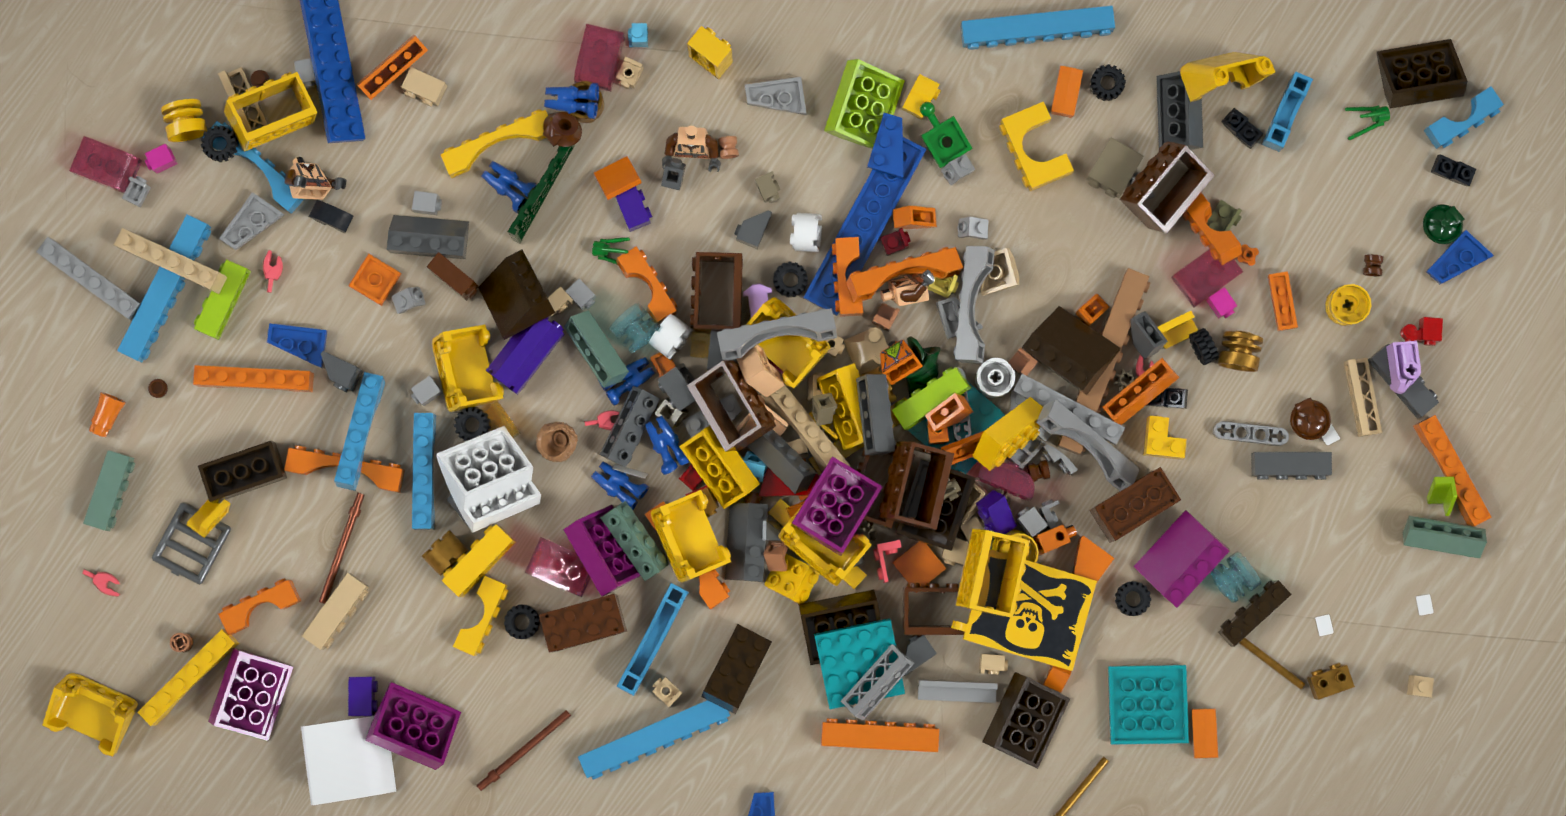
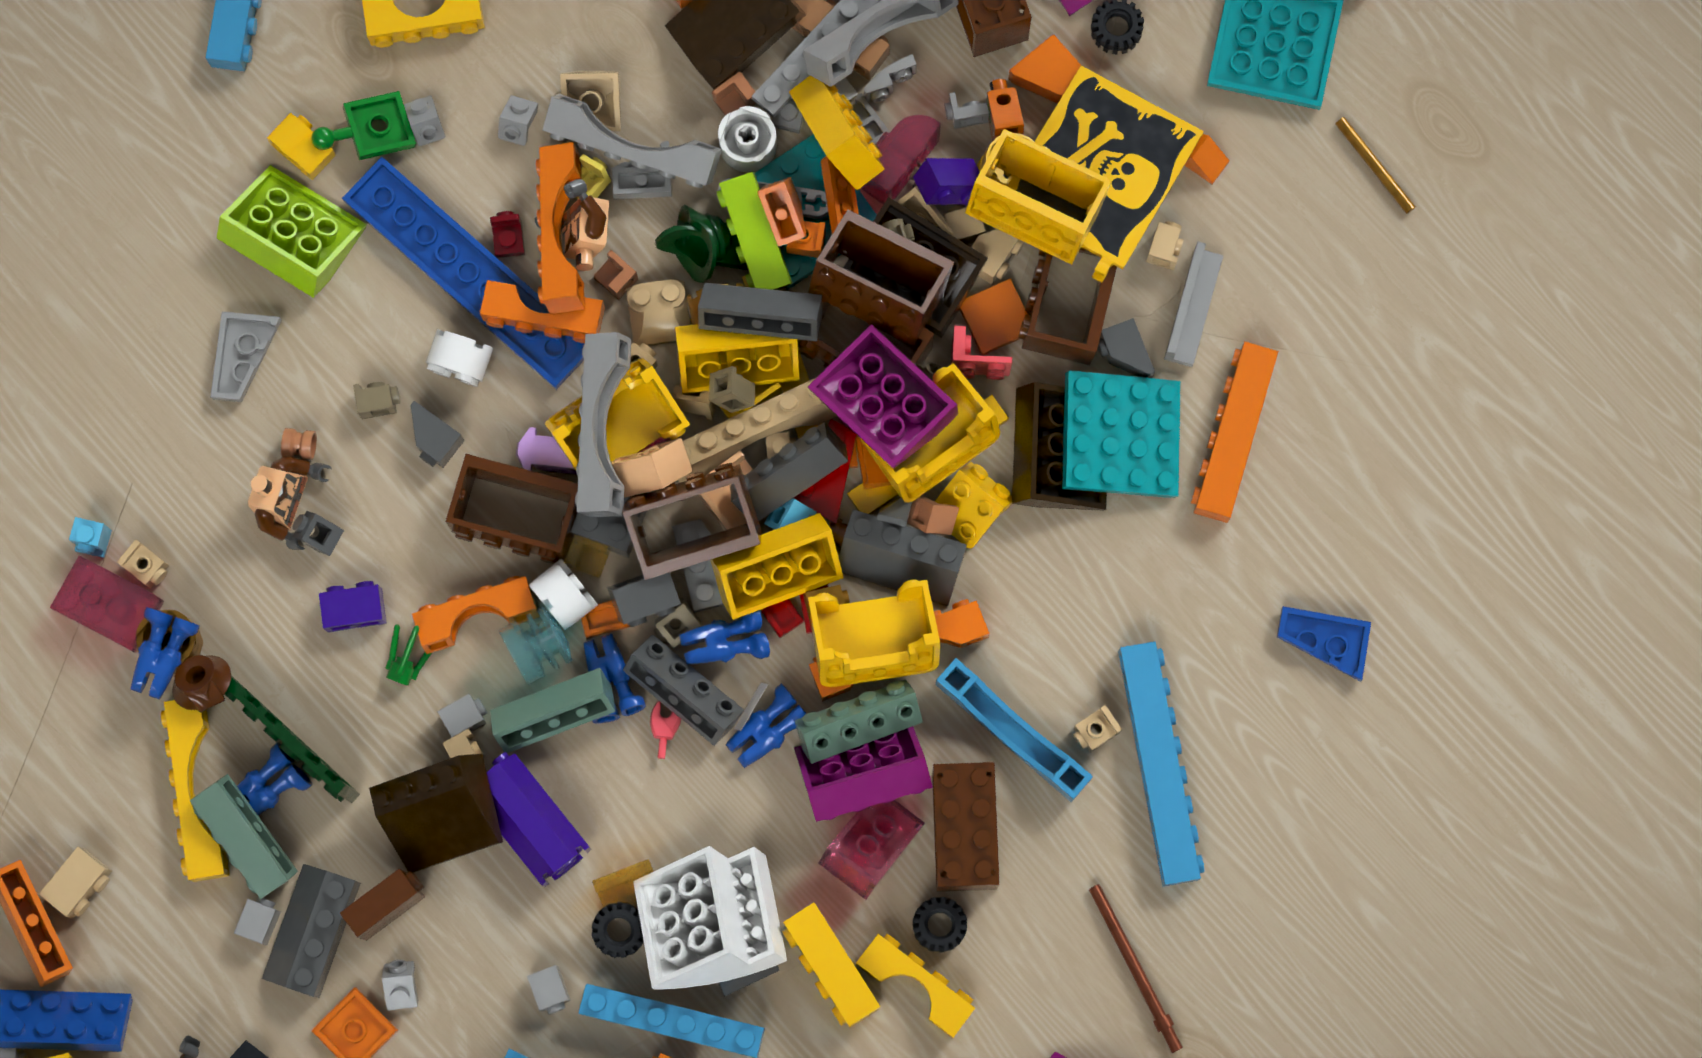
camera: 75 degrees left, 5 degrees down
(444, 552) = (806, 1016): pearl gold brick -> none
(463, 367) = (529, 921): yellow windscreen -> none
(474, 180) = (243, 836): none -> sand green brick
(556, 441) = (678, 804): medium nougat hair -> none
(617, 177) = (299, 618): orange tile -> none
(710, 52) = (146, 430): yellow brick -> none
(736, 669) = (1088, 614): dark brown brick -> none
(793, 268) = (517, 384): black tyre -> none
(888, 147) = (363, 208): blue wing -> none
(892, 674) = (1165, 408): light grey fence -> none
(898, 361) = (687, 263): orange torso -> none
(914, 217) = (479, 199): orange slope -> none
(1026, 720) = (1258, 218): dark brown slope -> none
(1030, 521) = (971, 136): light grey brick -> none
(1033, 470) = (898, 107): reddish brown wheel -> none

